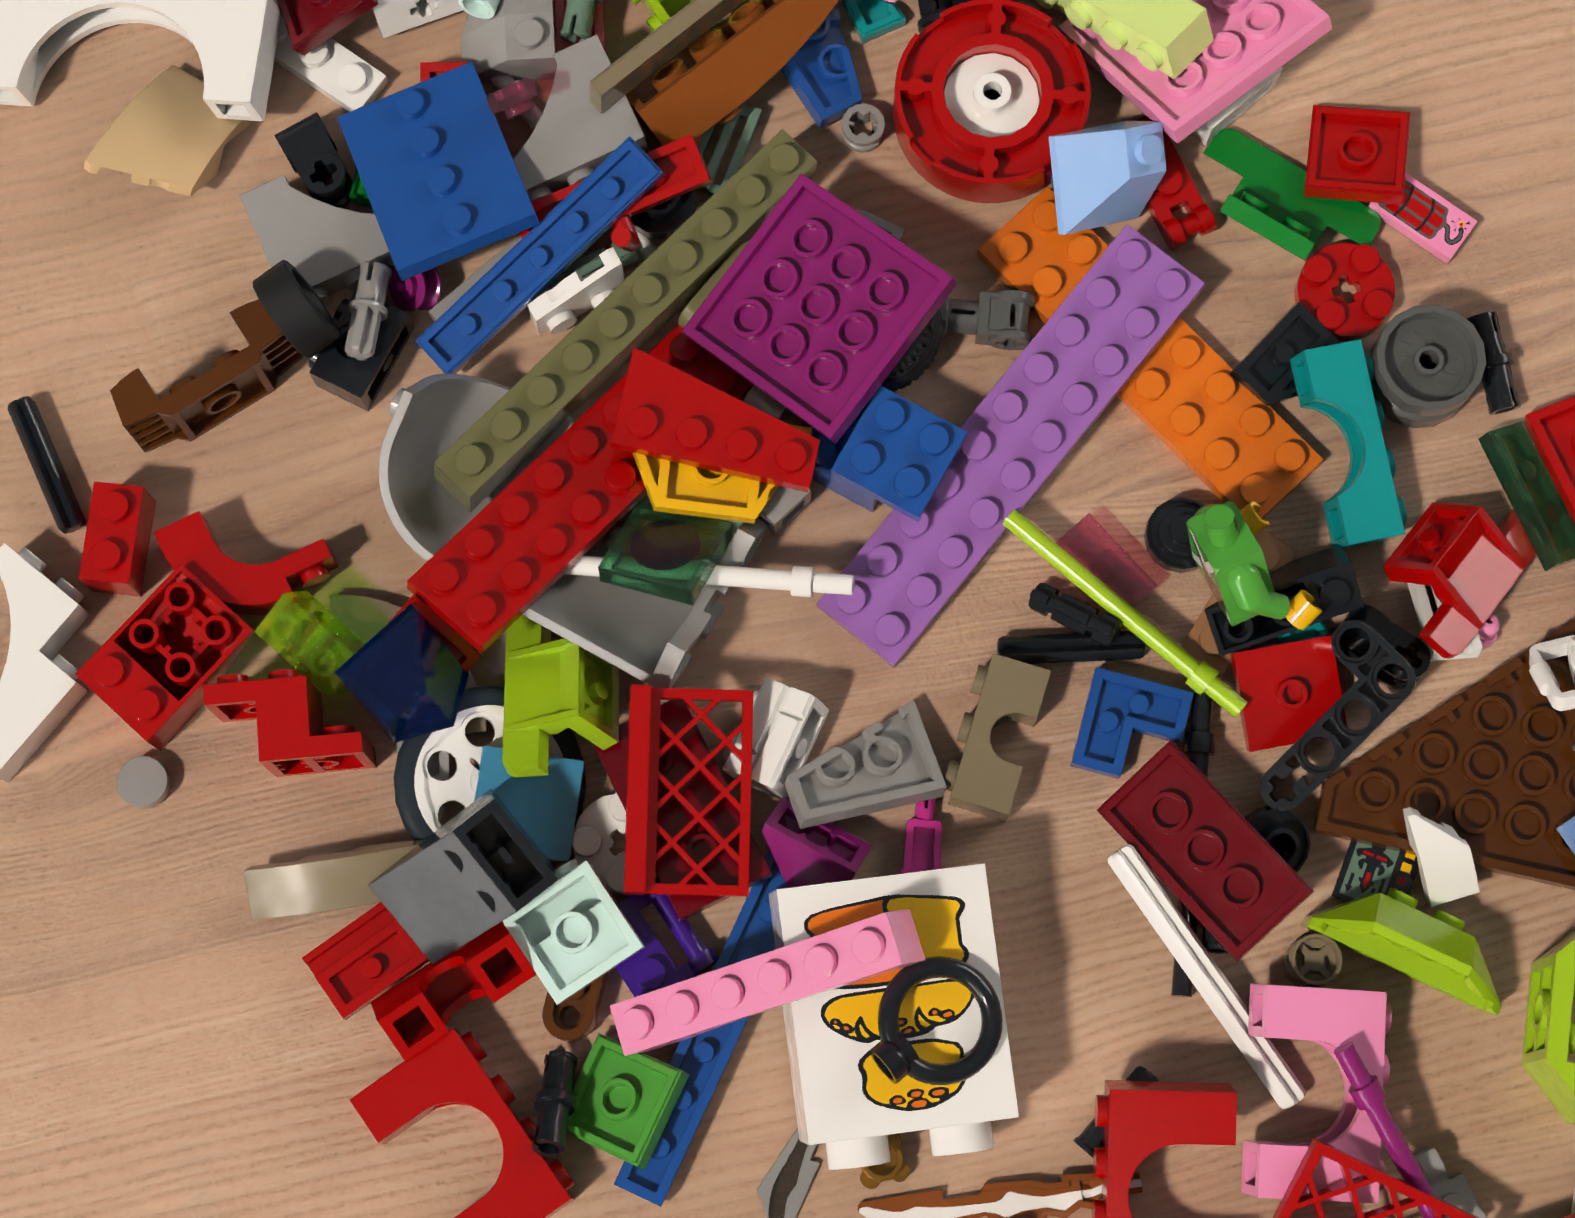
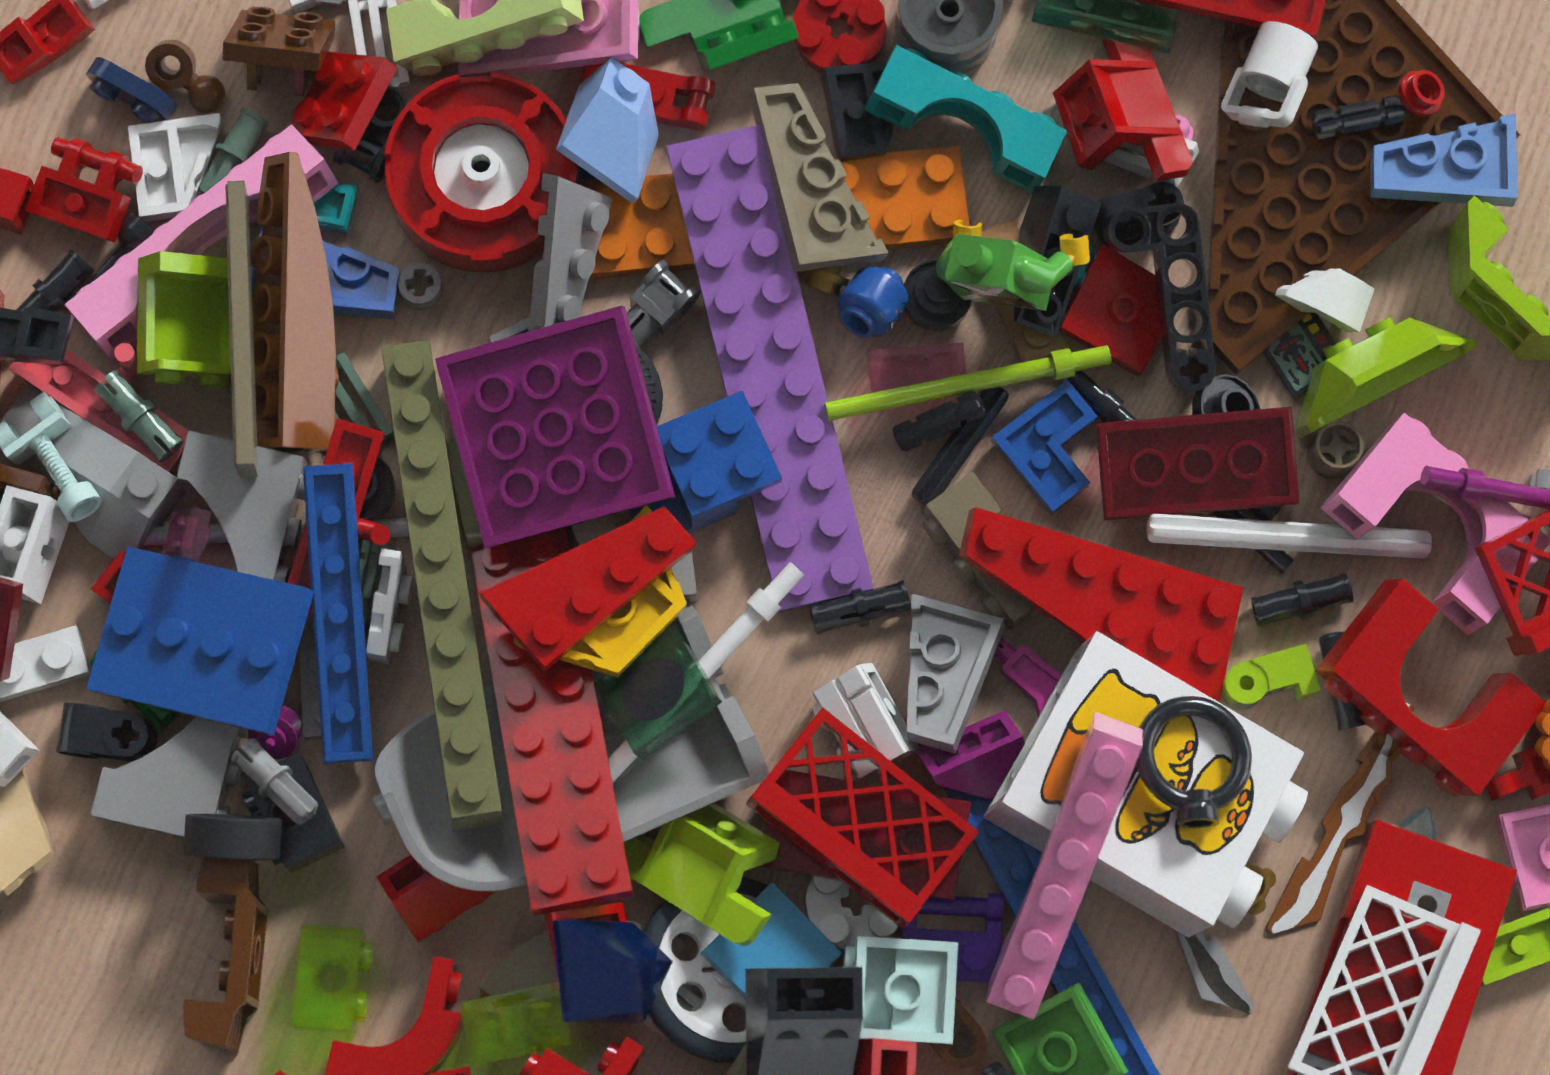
camera: 60 degrees left, 0 degrees up
(222, 473) = (319, 950): none -> clear neon green brick
(358, 499) = (424, 899): none -> red slope
(869, 667) = (860, 607): none -> black pin
(984, 210) = (570, 247): none -> light grey wing
(1043, 897) = (1146, 606): none -> red wing
(1058, 1035) = (1270, 675): none -> lime leg
(1123, 433) = (826, 279): none -> pearl gold plate
(1133, 486) = (872, 301): none -> blue head
(1161, 1027) = (1302, 600): none -> black pin
(1176, 376) = (813, 200): none -> dark tan wing

